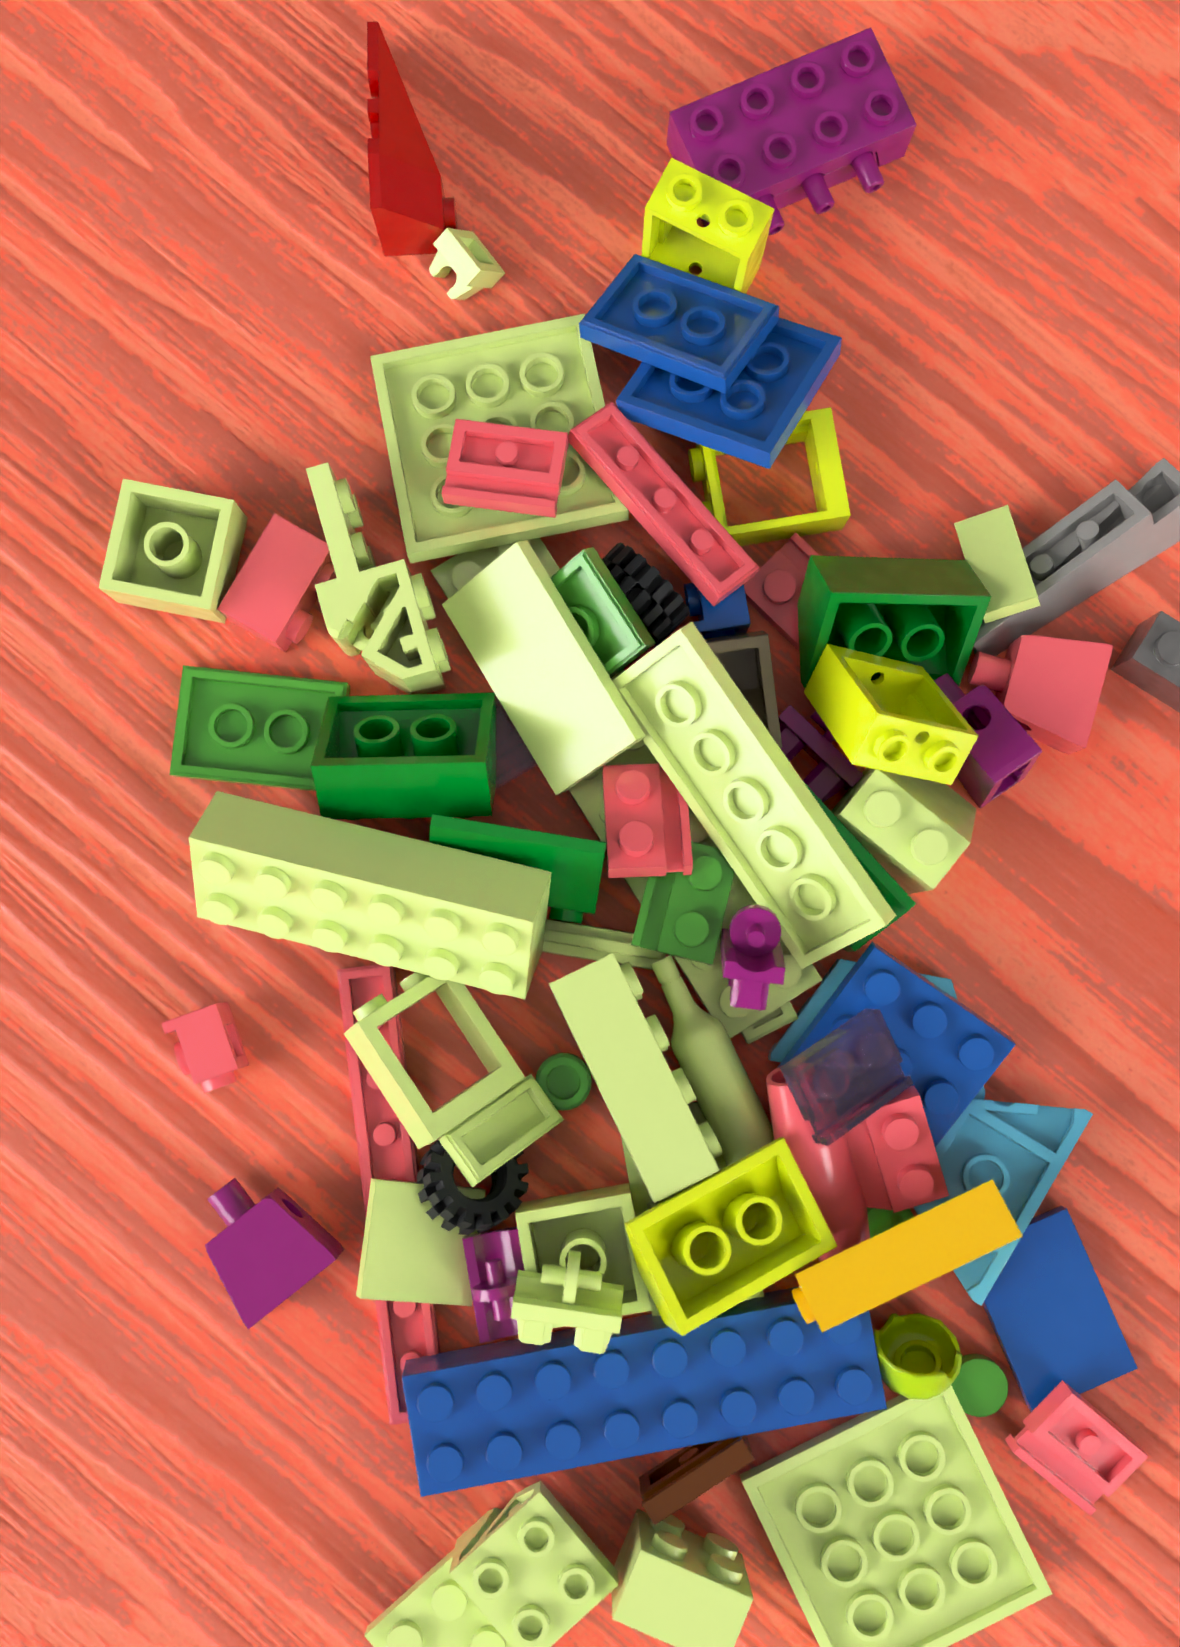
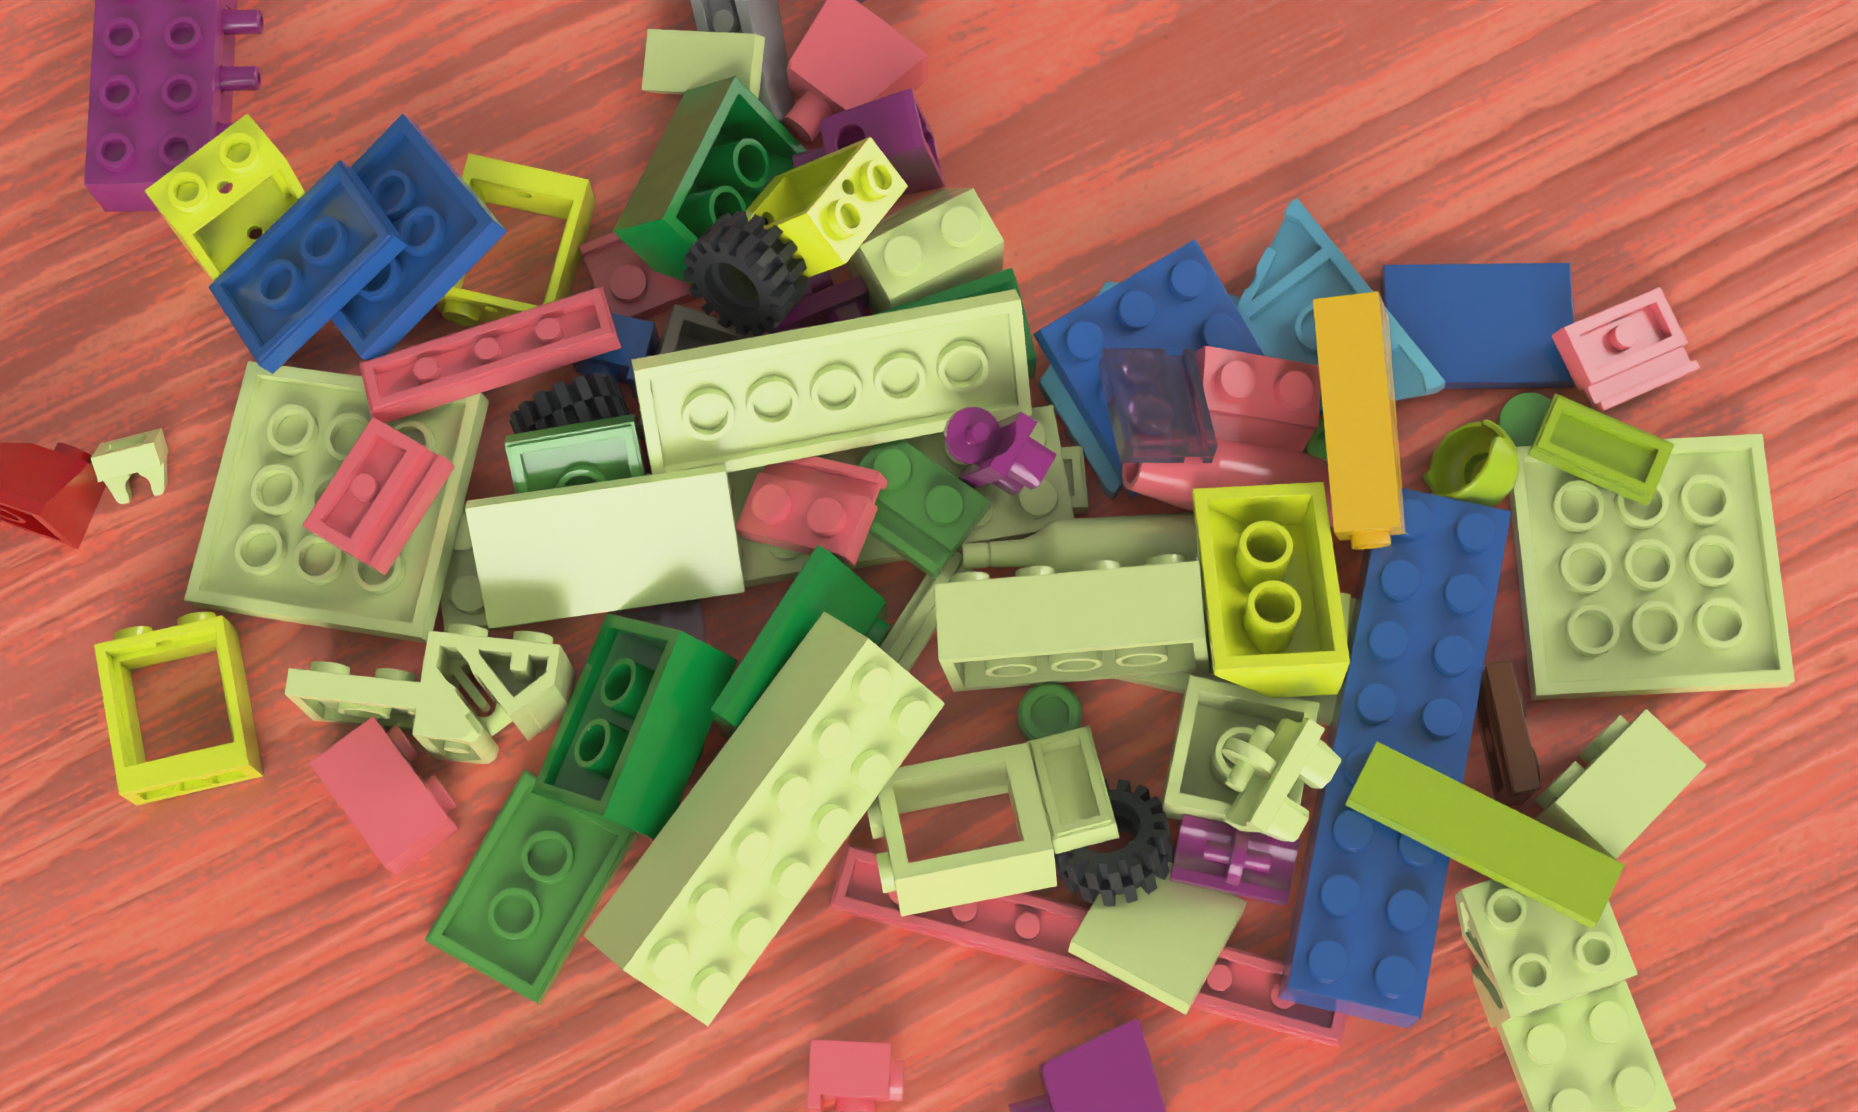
camera: 65 degrees left, 10 degrees down
(173, 550) = (297, 891): yellowish green brick -> none
(259, 354) = (191, 771): none -> neon yellow window
(588, 1500) = (1485, 835): none -> lime tile
(814, 682) = (745, 273): none -> black tyre
(977, 1461) = (1601, 449): none -> lime tile

